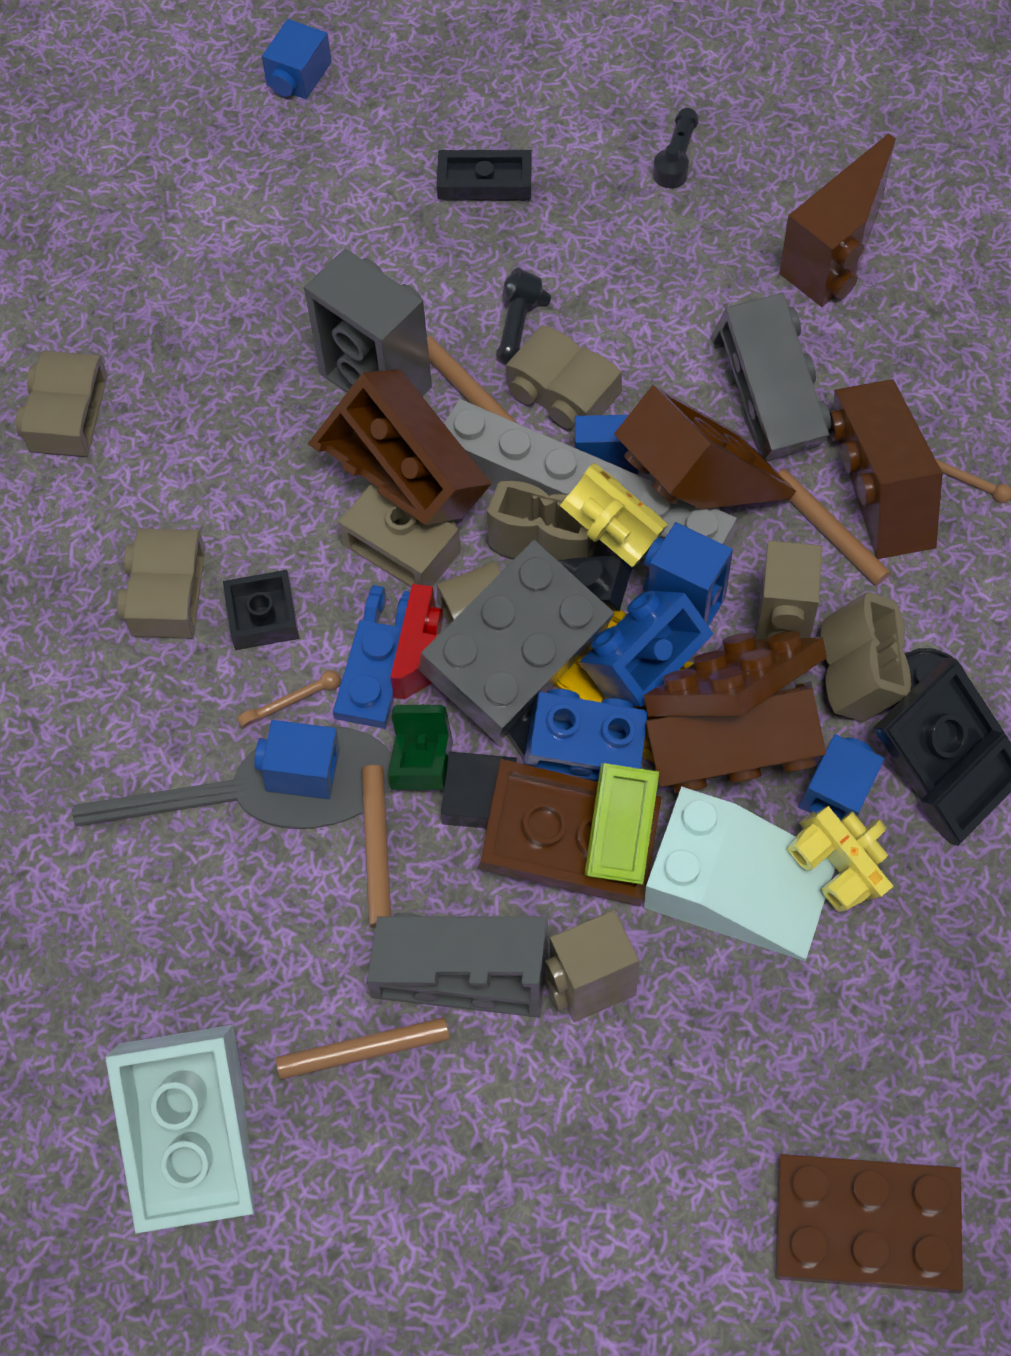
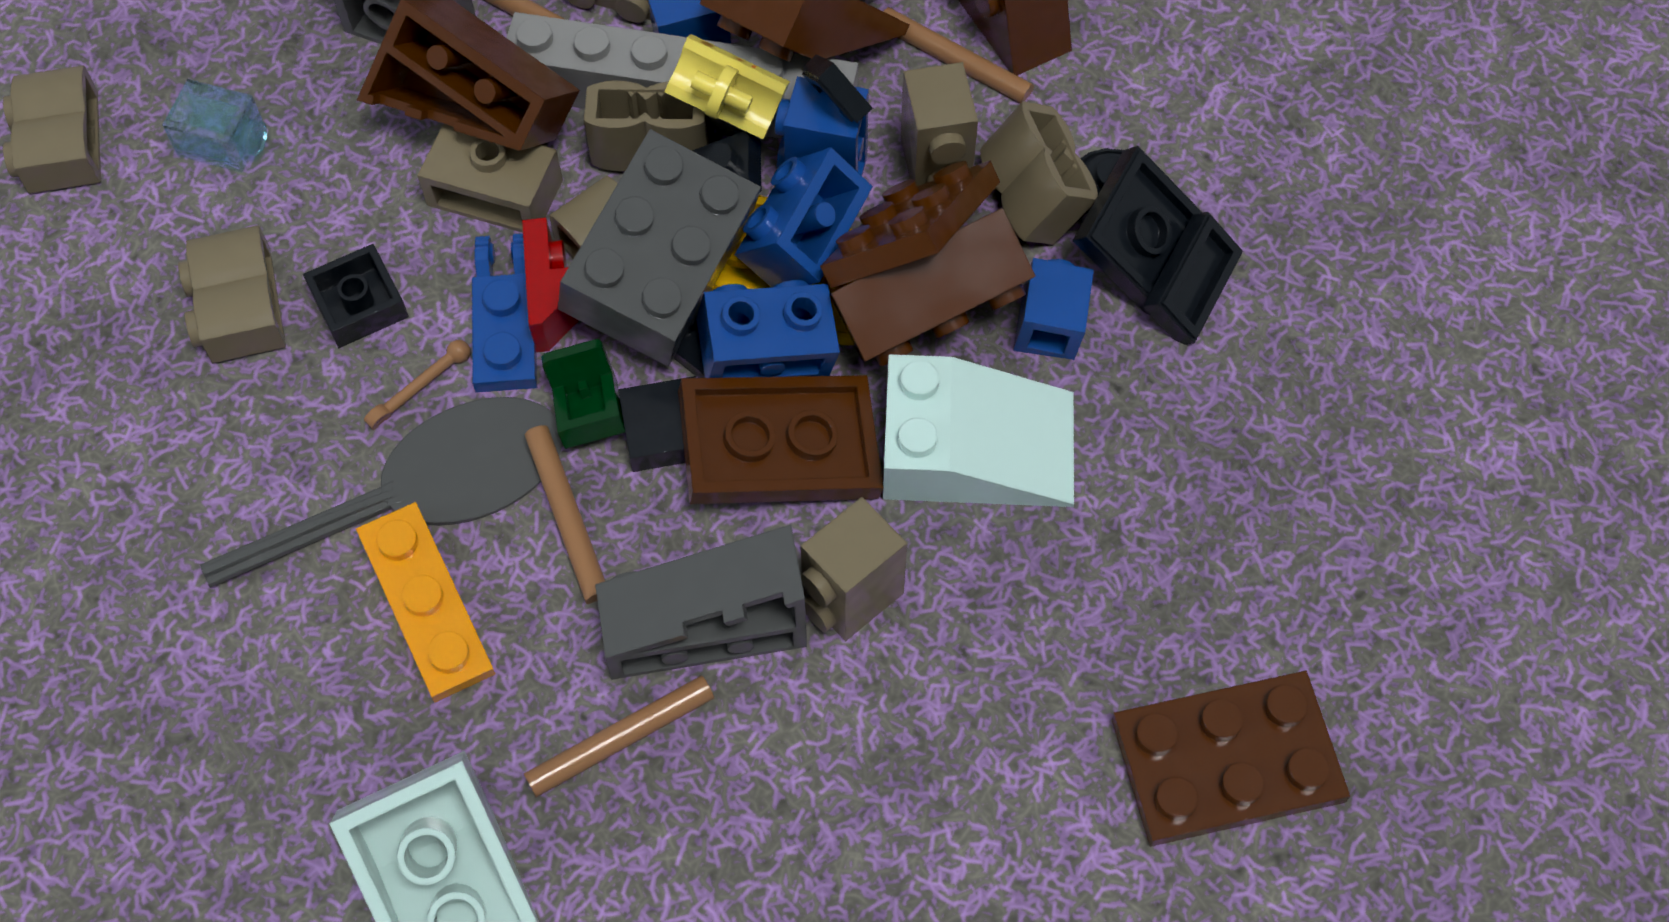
camera: 20 degrees left, 0 degrees up
(190, 433) = (215, 126): none -> clear light blue brick
(240, 888) = (425, 602): none -> light orange plate
(298, 759) = (450, 441): blue brick -> none
(621, 823) = (836, 410): lime tile -> none
(702, 544) = (828, 78): none -> black tile
(852, 852) = (1086, 376): light yellow hips -> none

